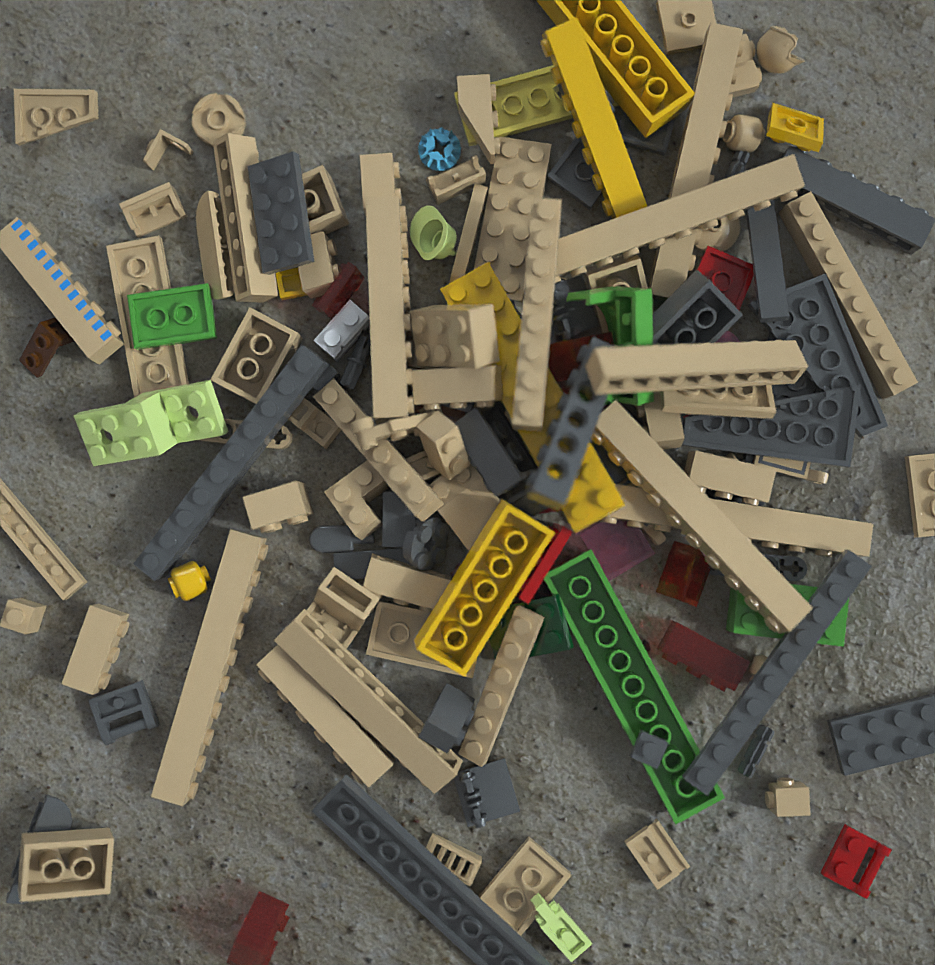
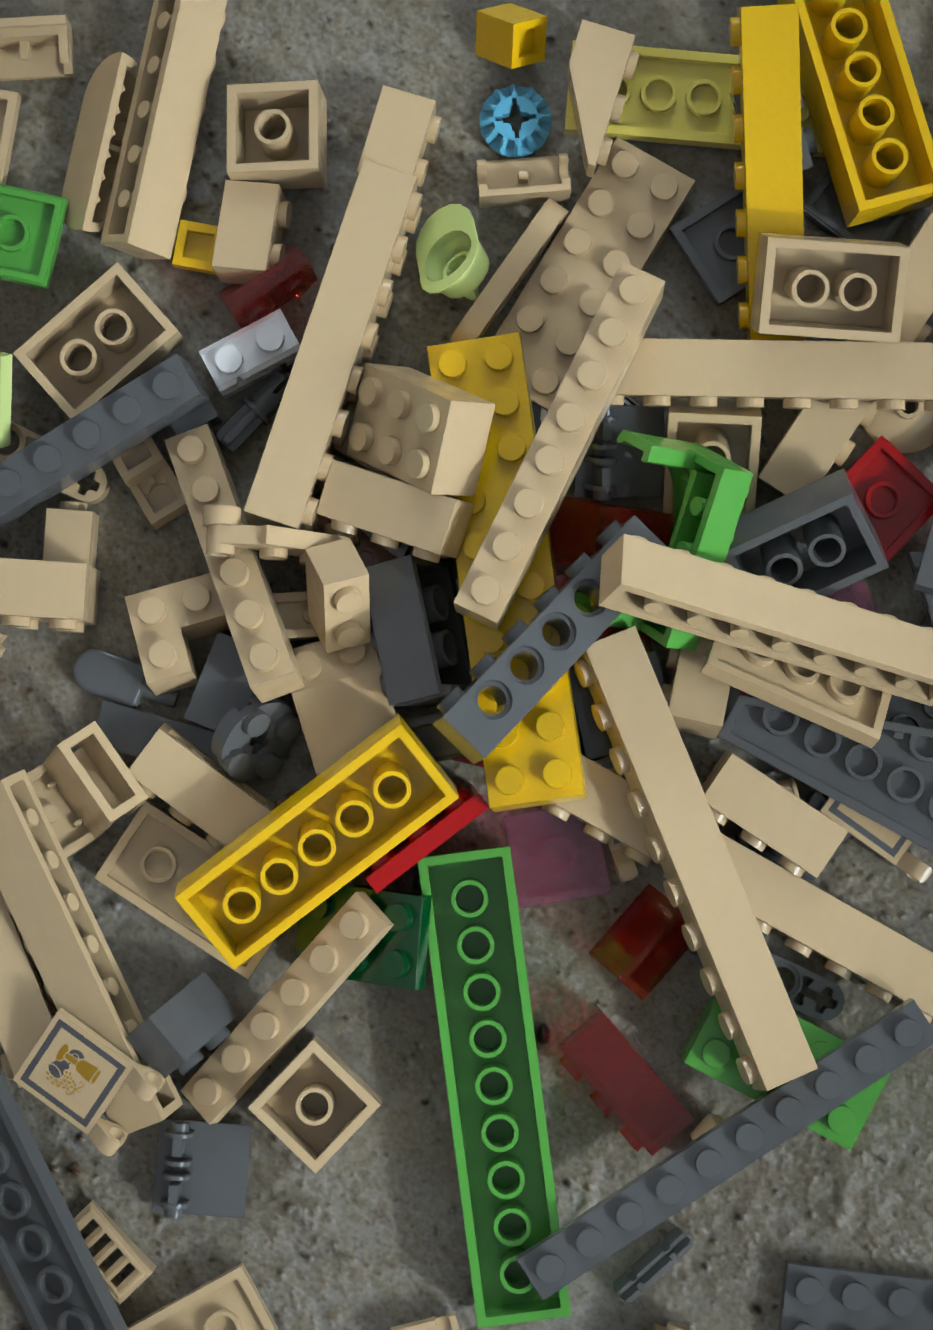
camera: 15 degrees right, 0 degrees up
(280, 213) = (222, 132): dark grey plate -> none
(280, 468) = (71, 534): none -> tan brick
(401, 768) = (80, 1076): none -> tan flag
(419, 102) = (510, 35): none -> yellow panel
(536, 733) = (315, 1103): none -> tan brick
(649, 749) = (480, 1193): dark grey plate -> none
(652, 171) = (829, 287): none -> tan brick

